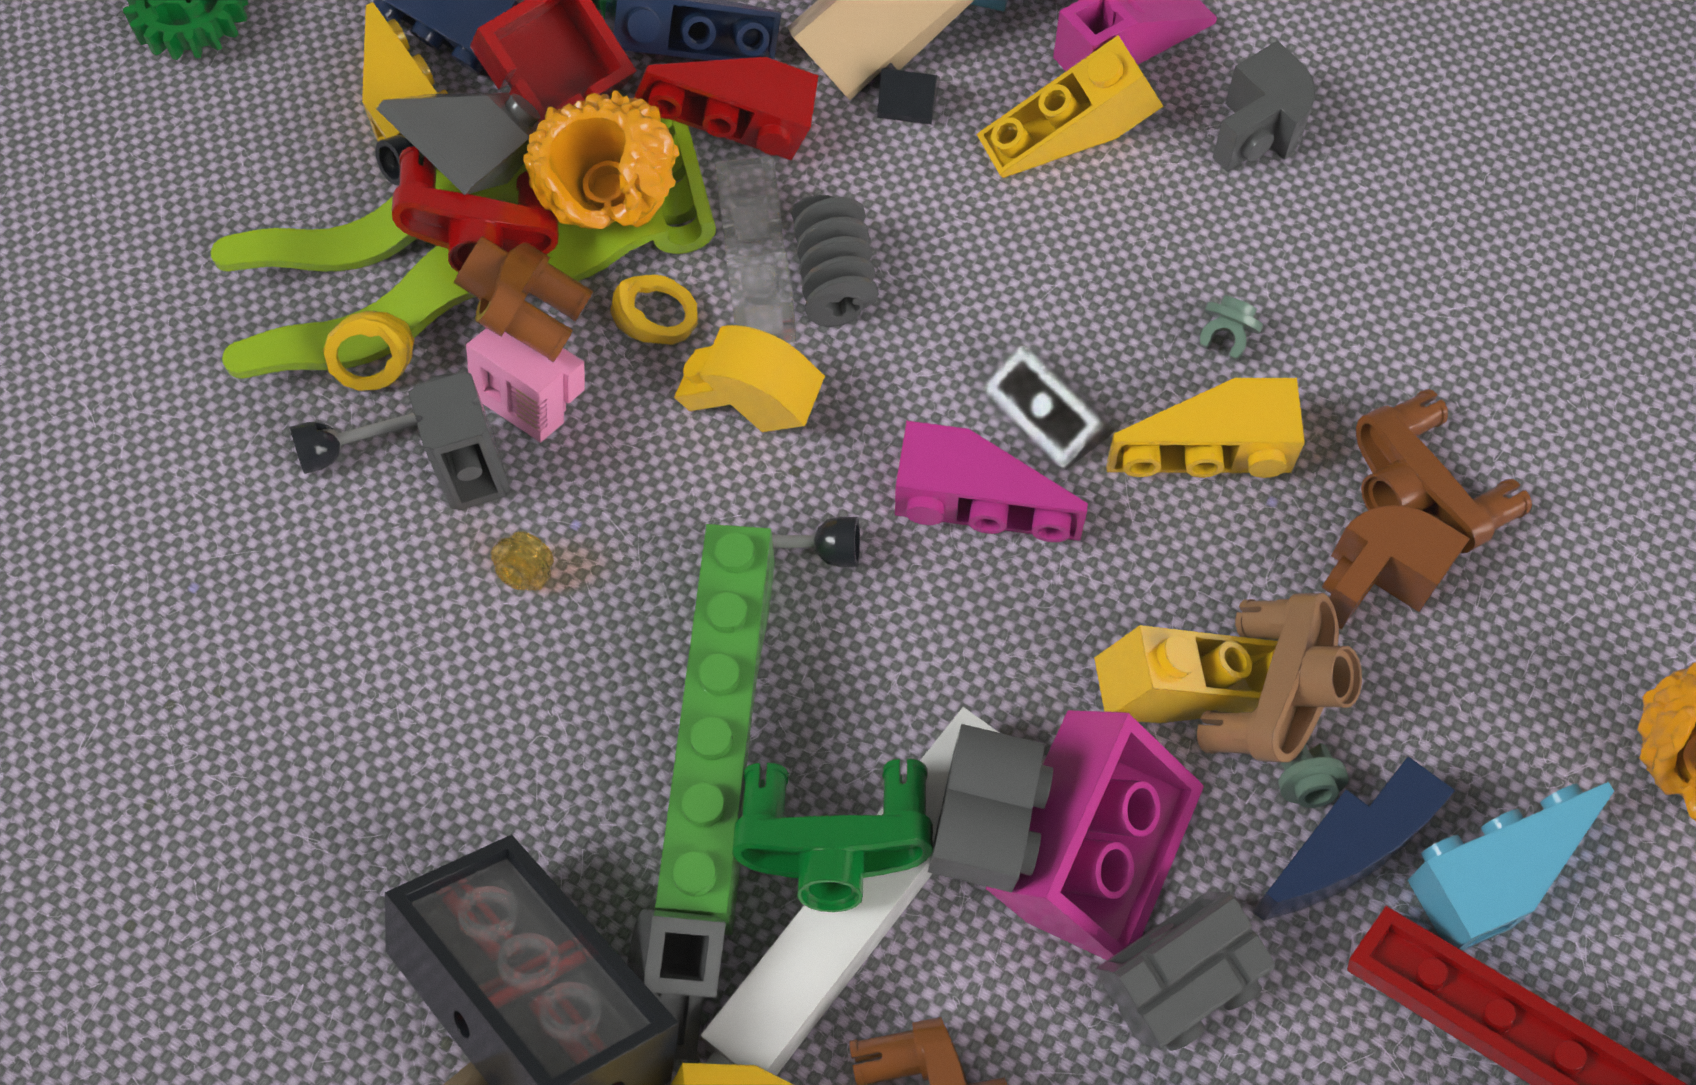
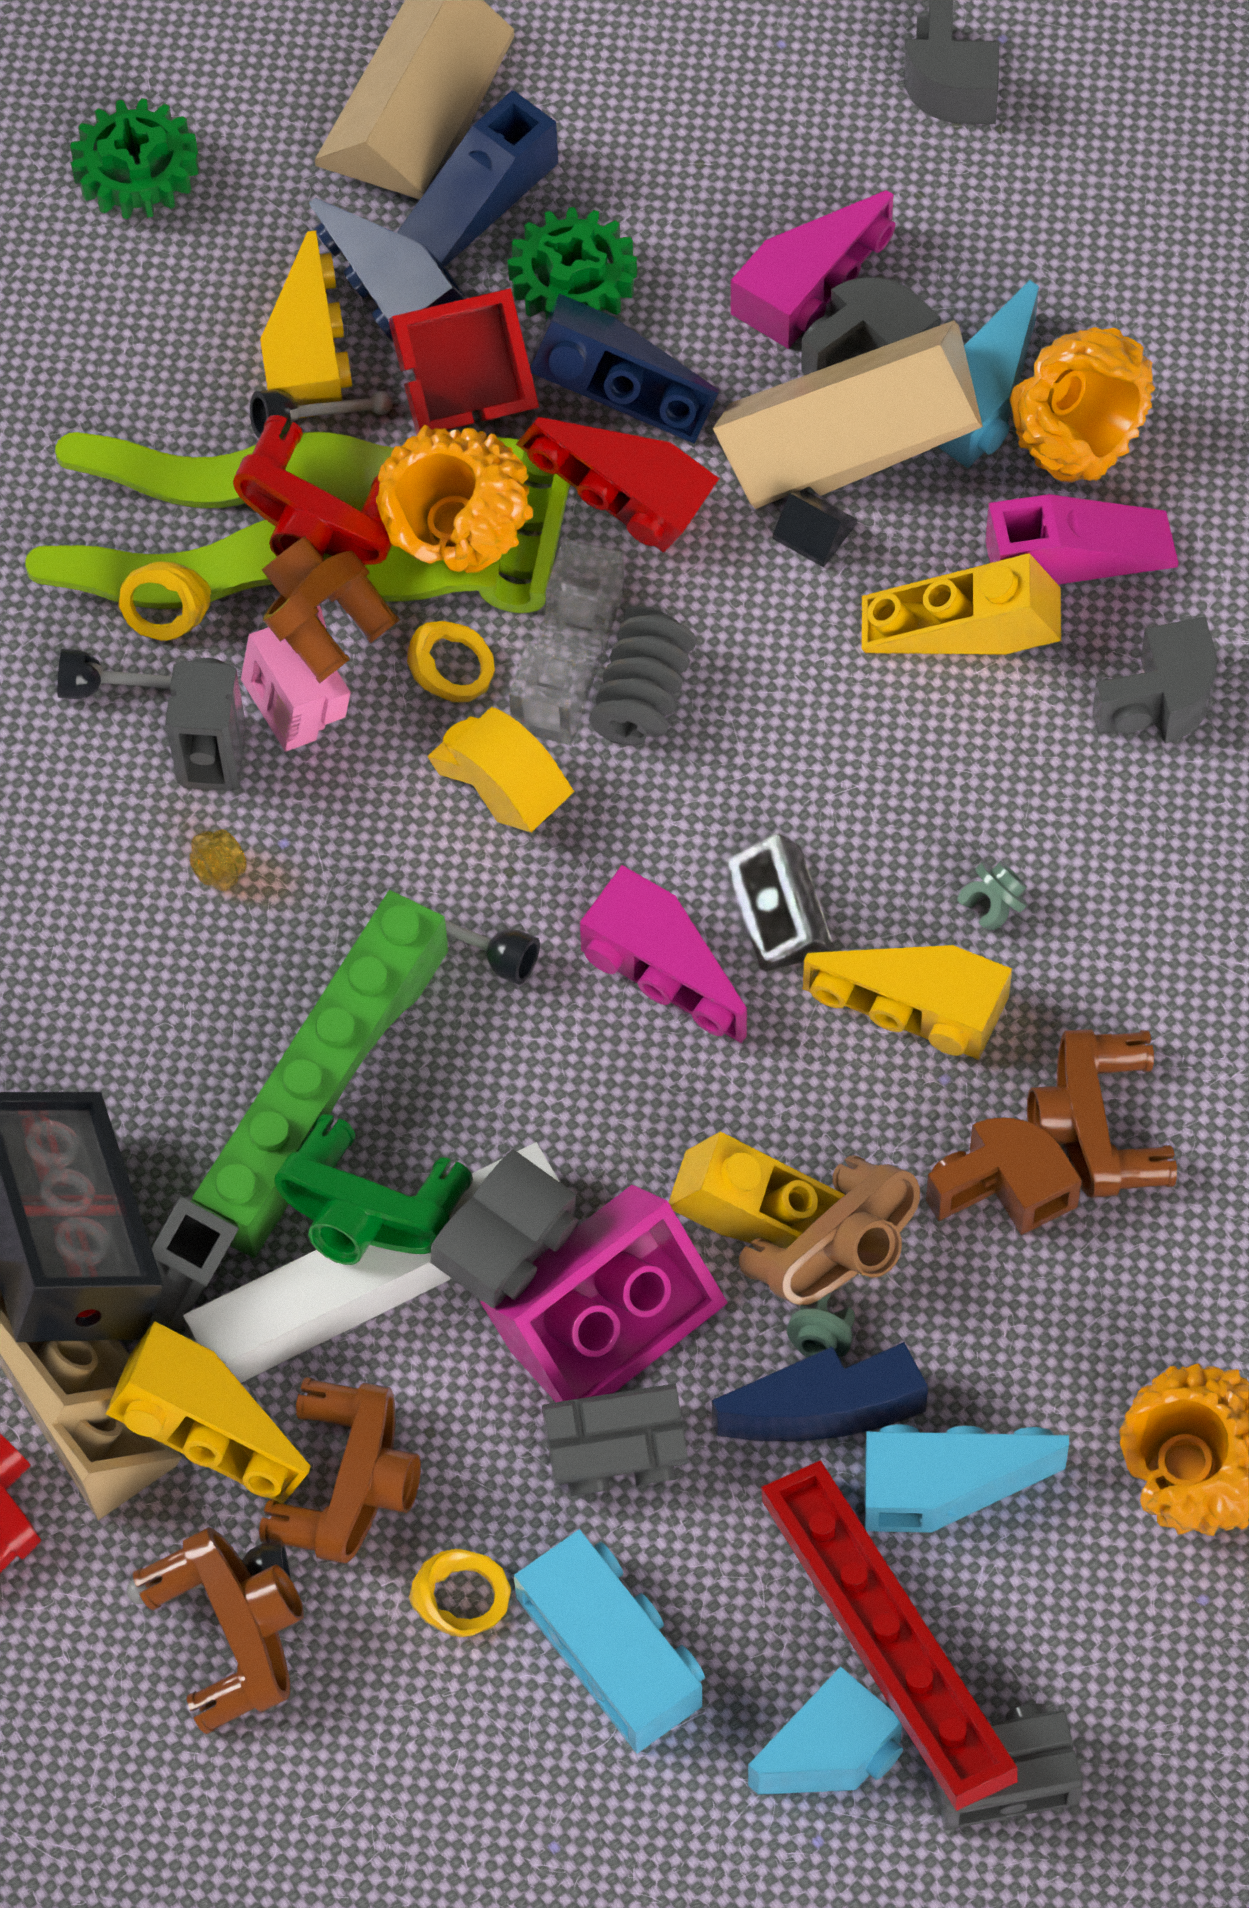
camera: 25 degrees right, 0 degrees up
(467, 136) = (337, 418): dark grey slope -> none

